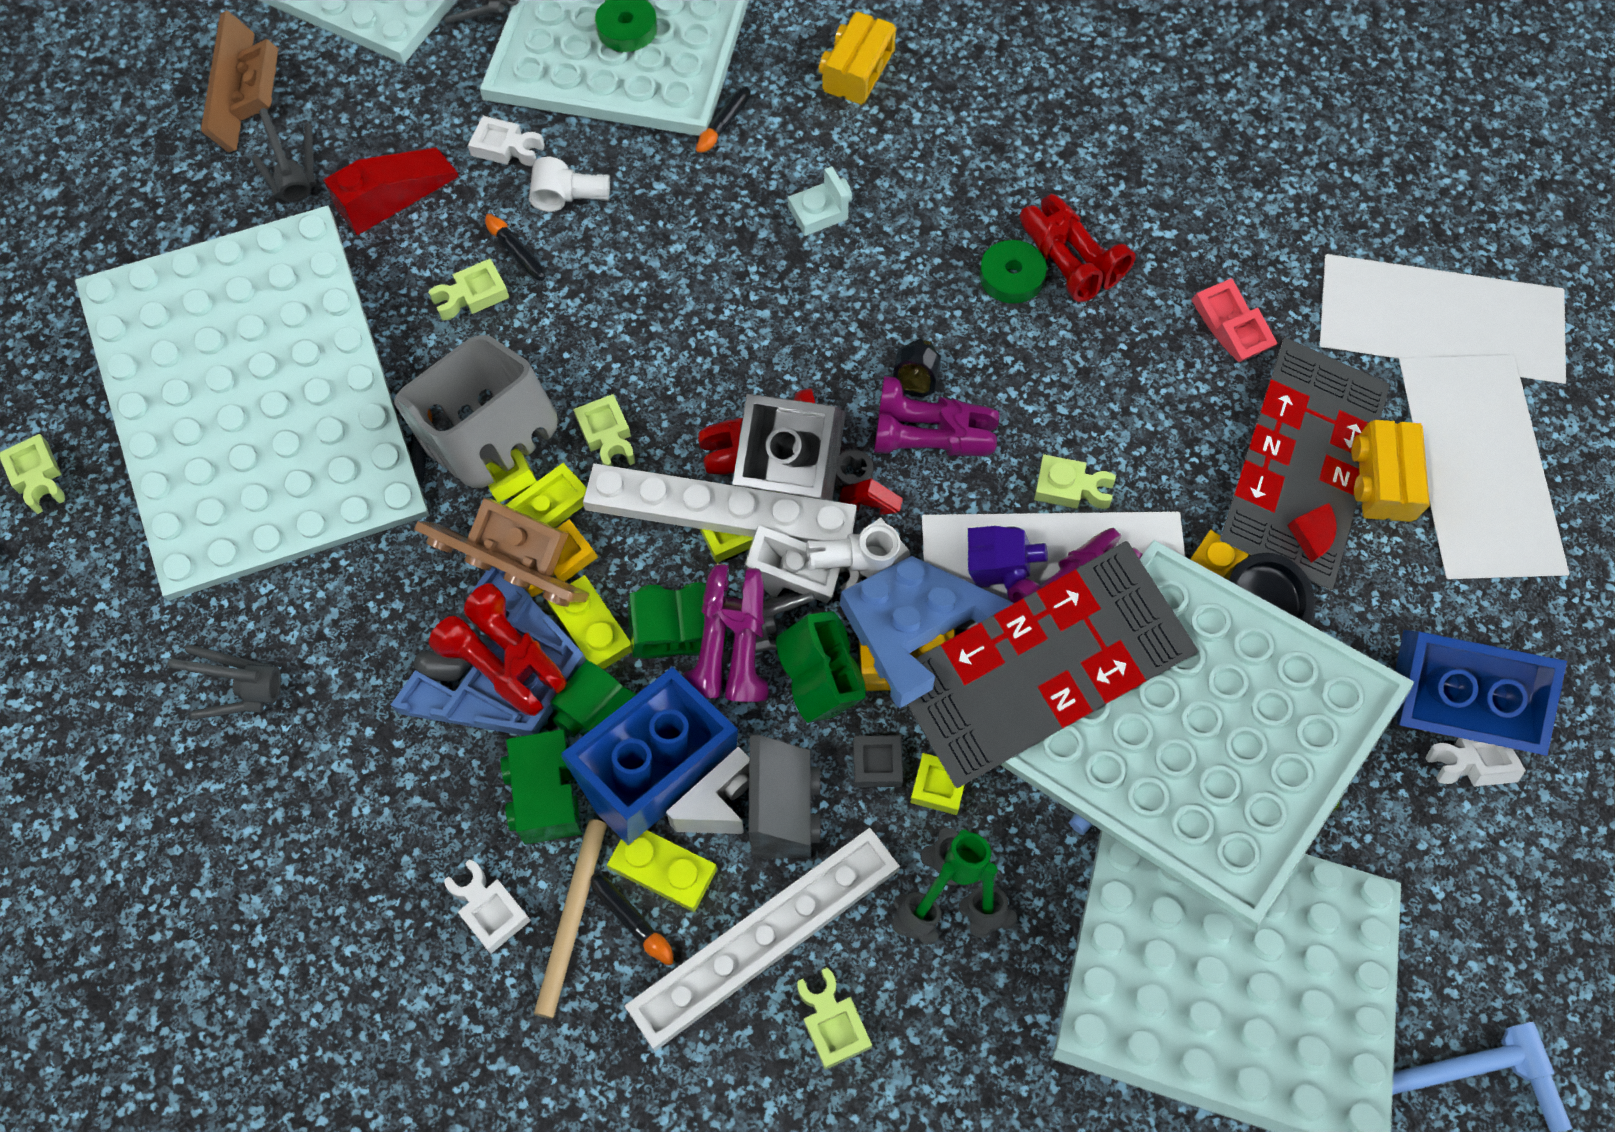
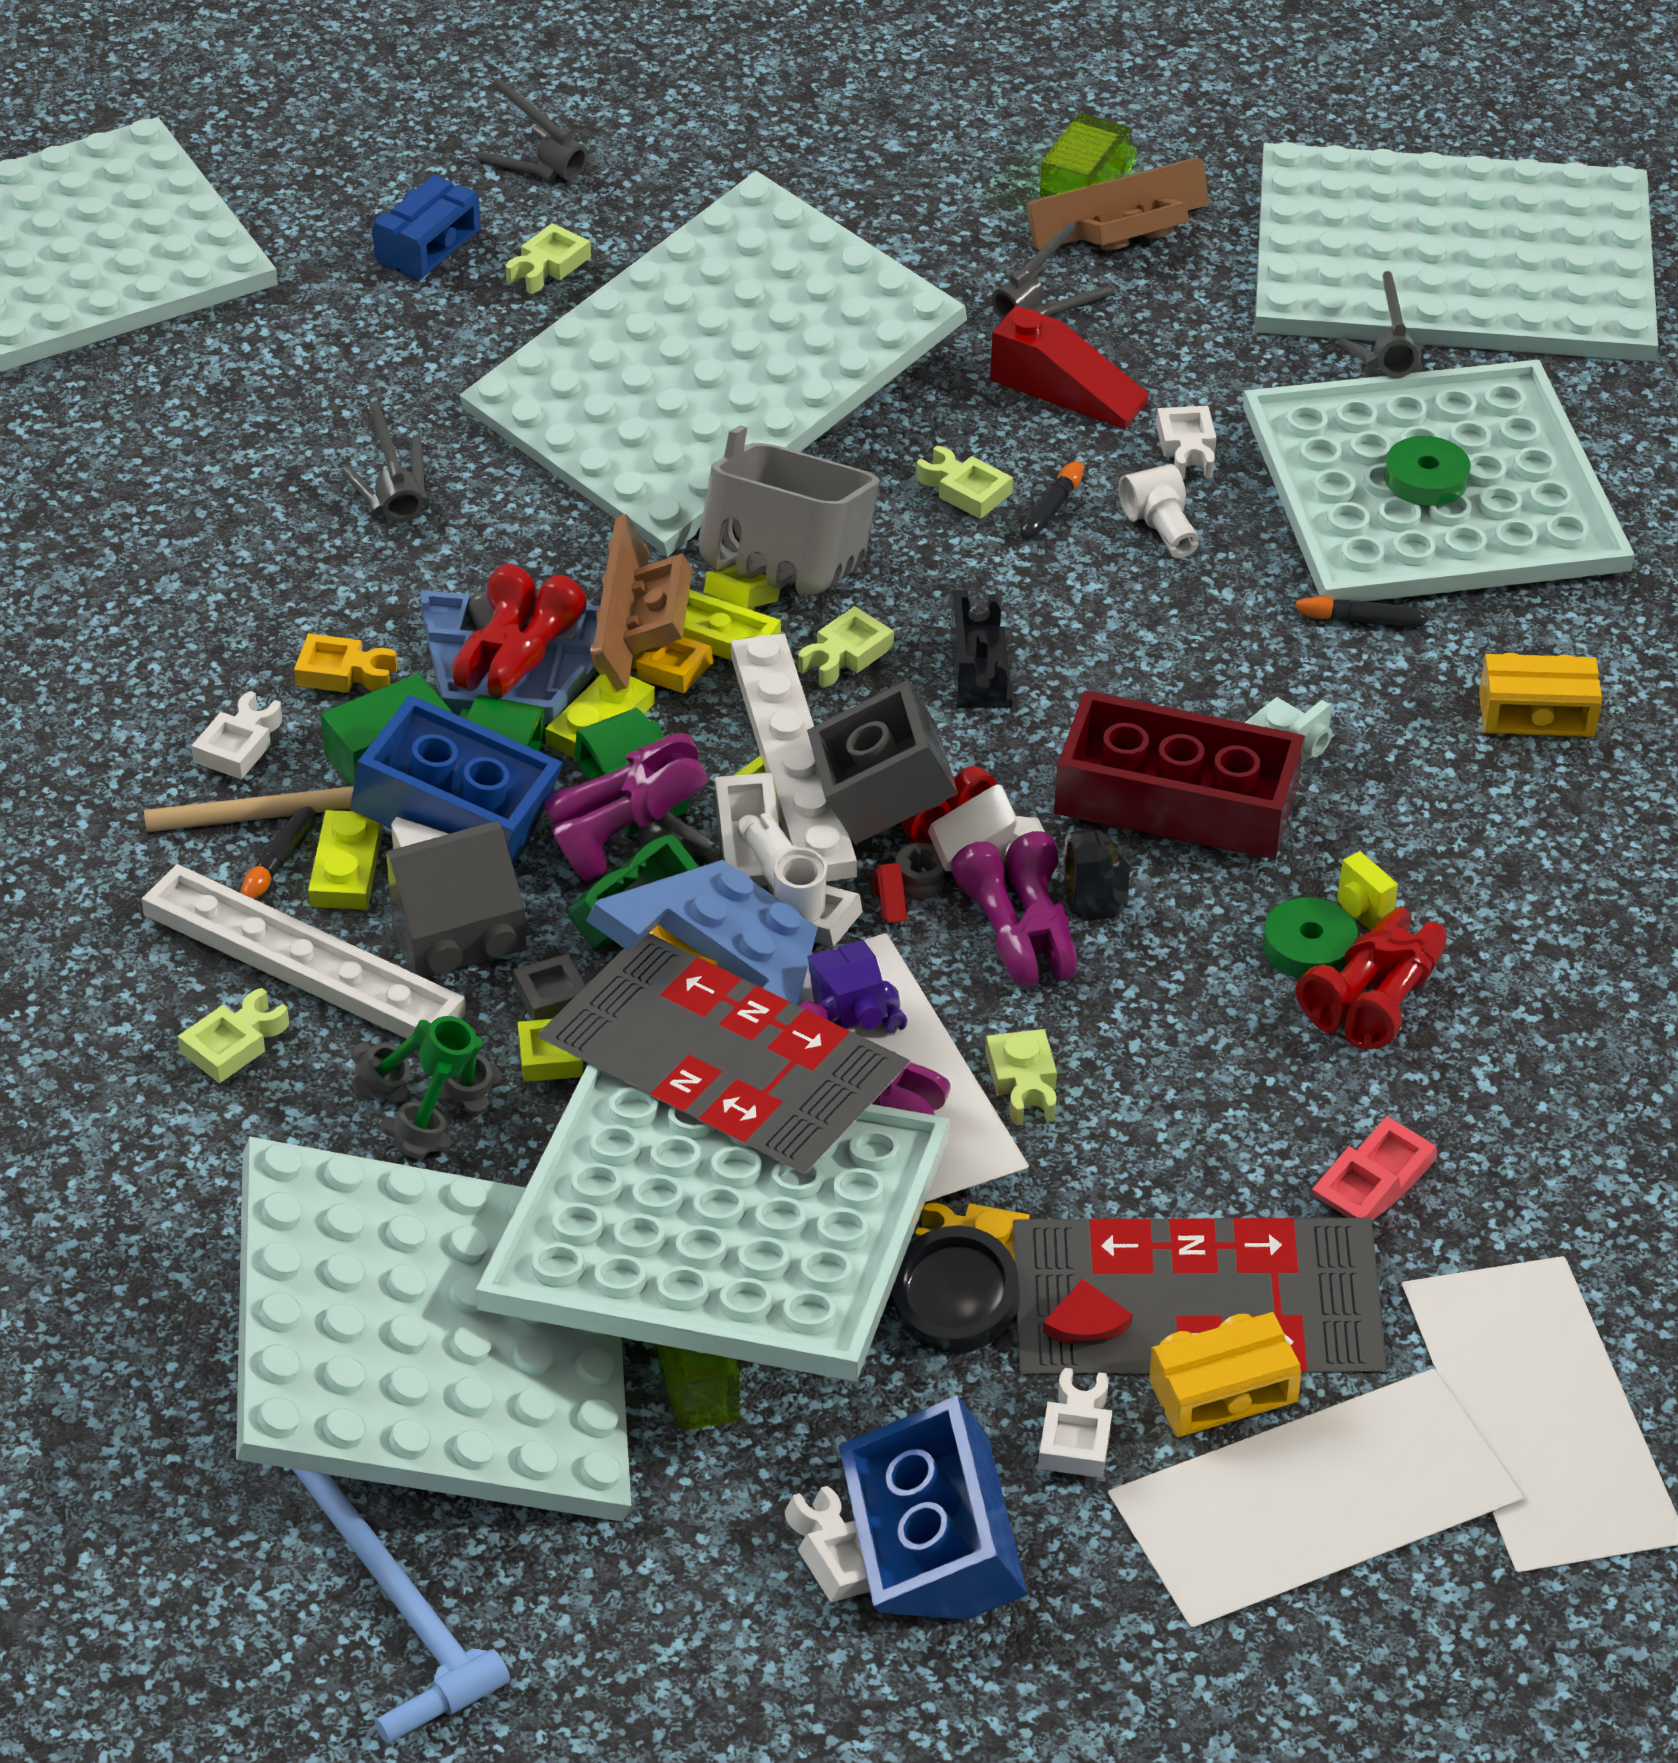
camera: 65 degrees right, 20 degrees down
(169, 79) = (1087, 155): none -> clear neon green brick
(439, 801) = (338, 662): none -> yellow plate
(656, 354) = (979, 655): none -> black hinge
(850, 278) = (1179, 774): none -> dark red brick
(861, 406) = (981, 819): none -> white slope
(996, 221) = (1365, 890): none -> neon yellow plate
(1408, 575) = (1076, 1429): none -> white plate

